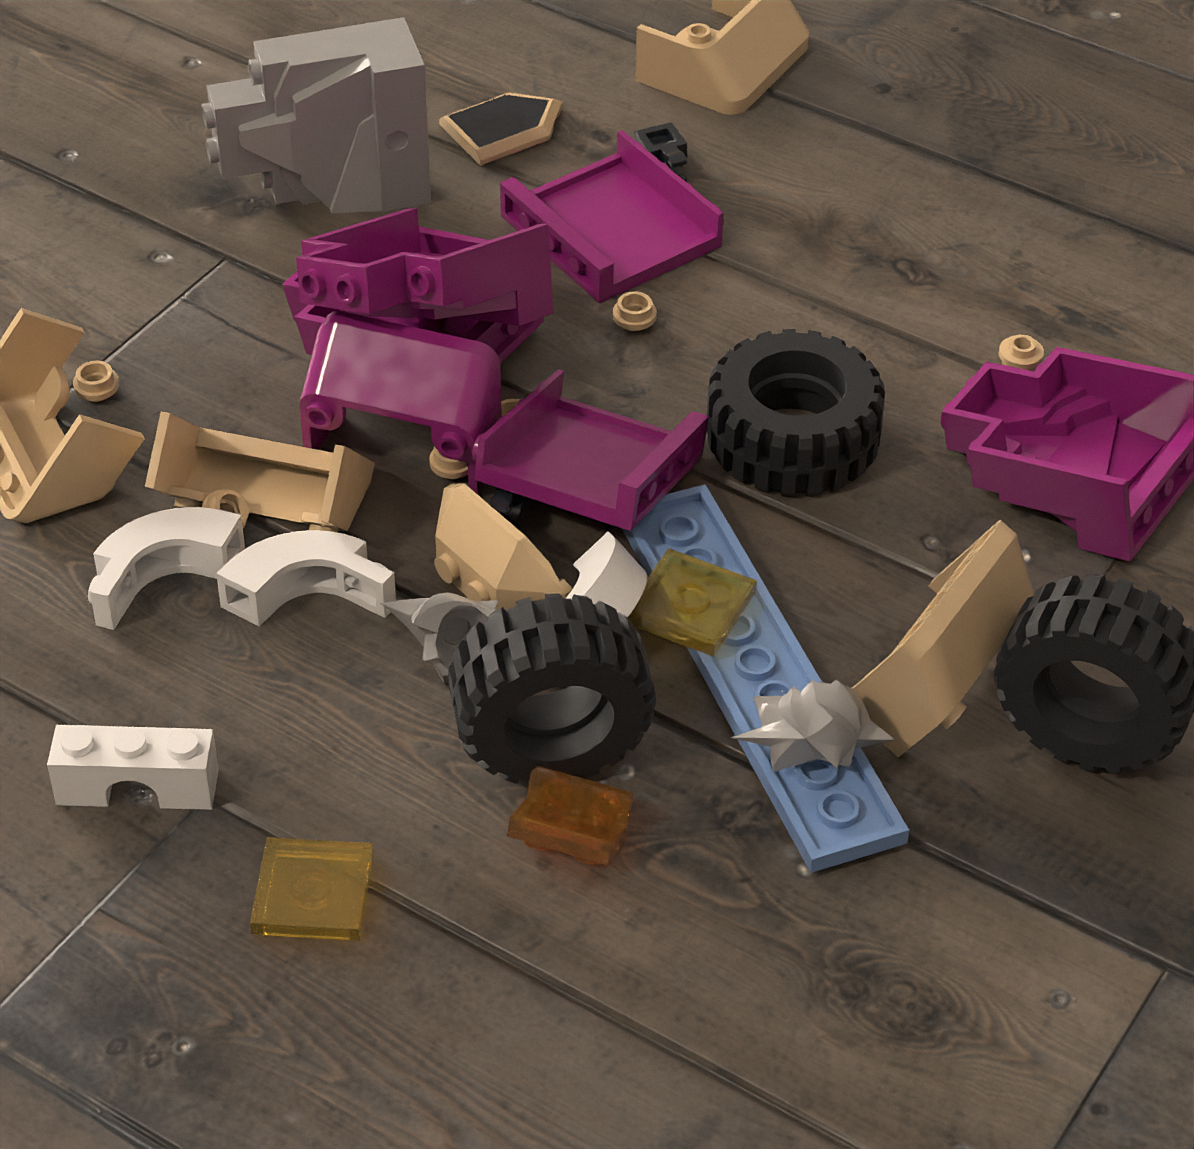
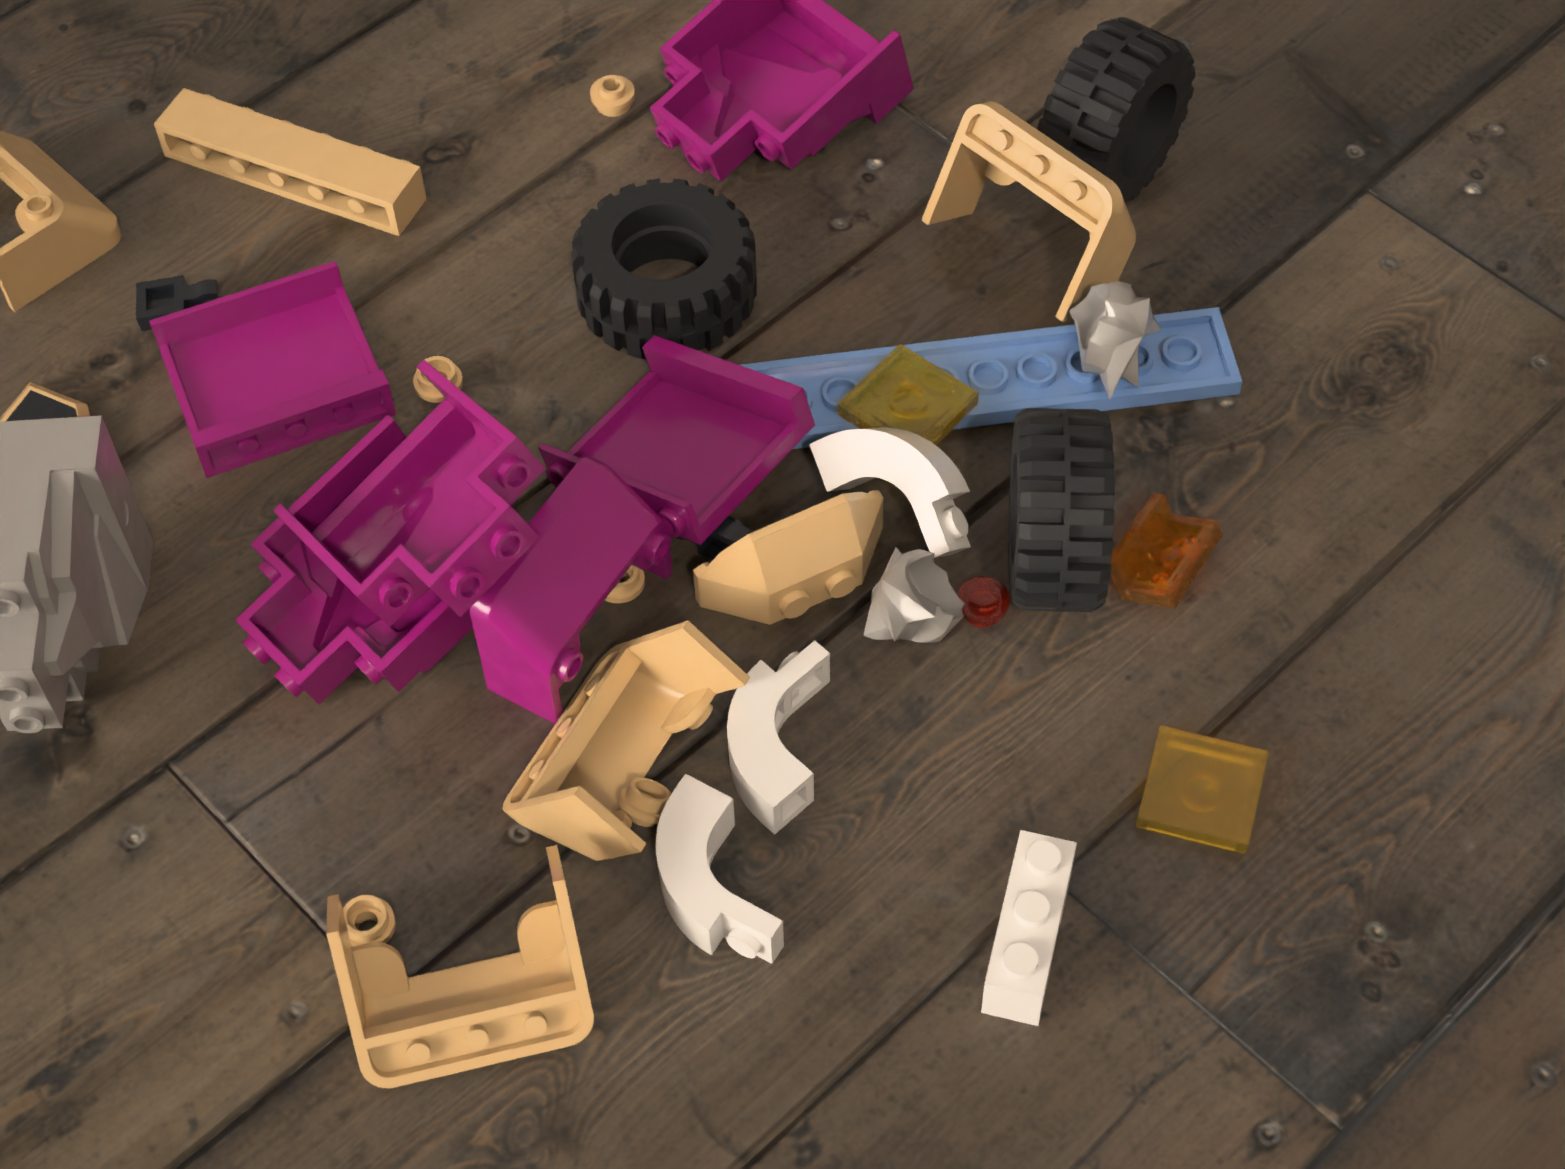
camera: 75 degrees left, 10 degrees up
(844, 177) = (291, 161): none -> tan brick

